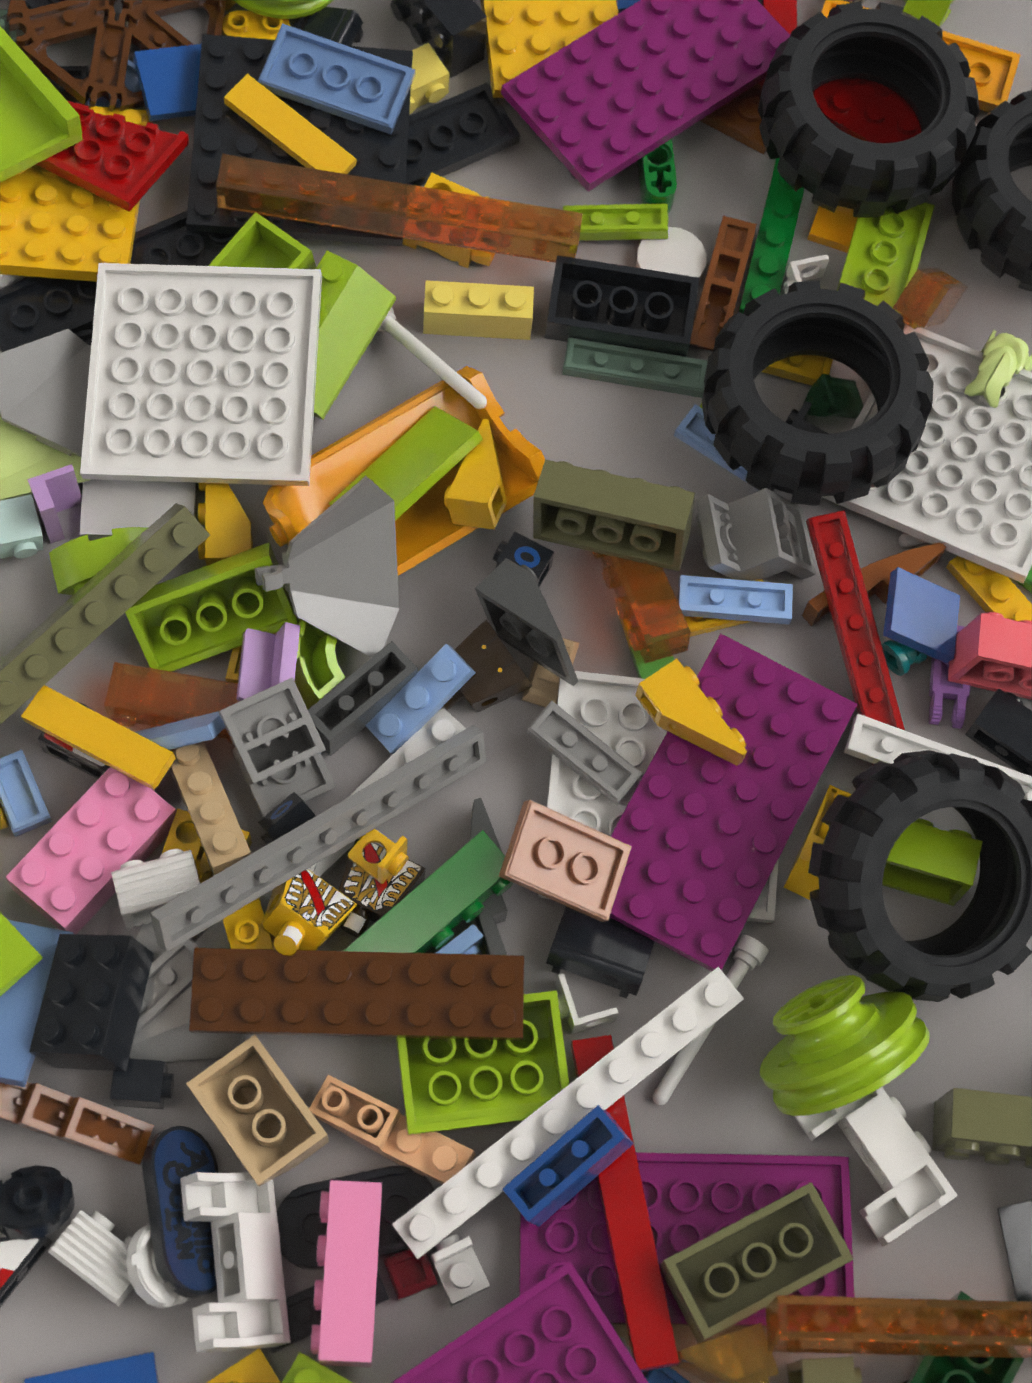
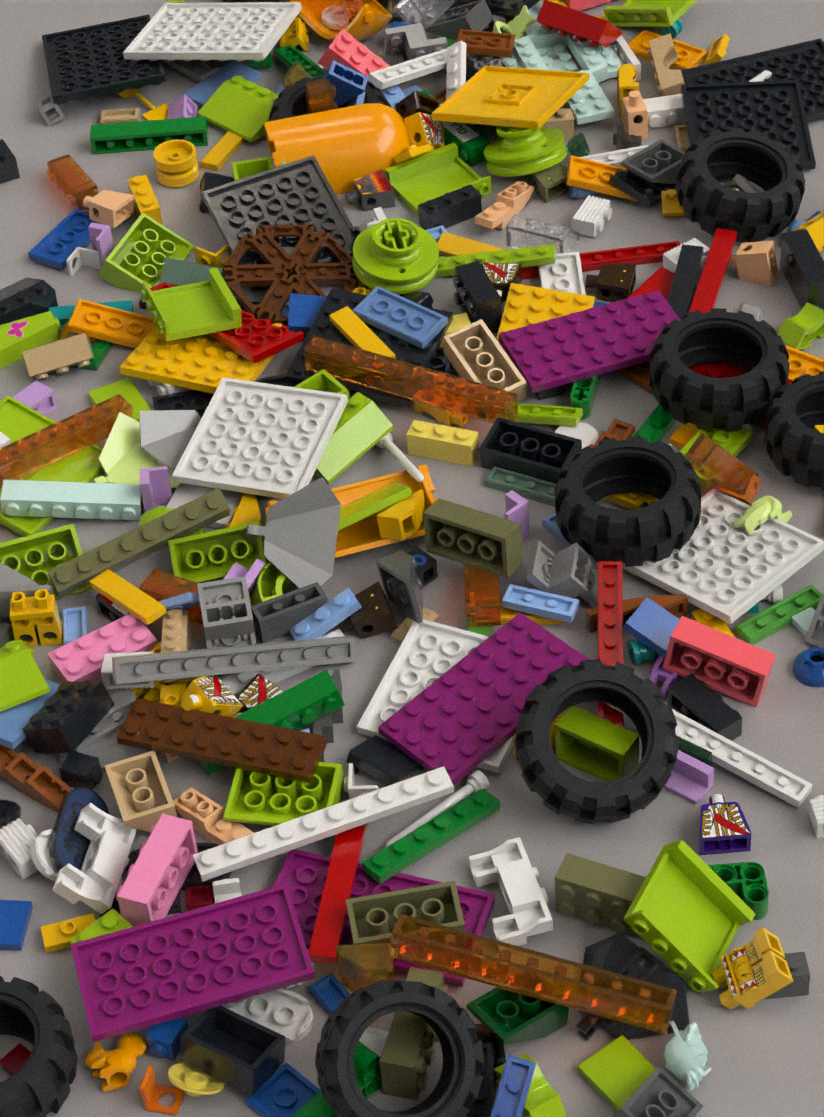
camera: 30 degrees right, 25 degrees down
(392, 863) = (268, 680): yellow bracket -> none
(497, 147) = (482, 359): none -> tan brick
(565, 861) = (371, 696): tile -> none
(567, 1166) = (309, 846): blue brick -> none
(584, 752) = (411, 658): light grey tile -> none
(646, 441) = (518, 511): none -> lavender panel
(682, 708) = (477, 640): yellow slope -> none
(719, 1074) = (430, 836): none -> green plate
(840, 1045) = (501, 814): lime wheel -> none
(960, 333) = (748, 496): none -> orange bracket

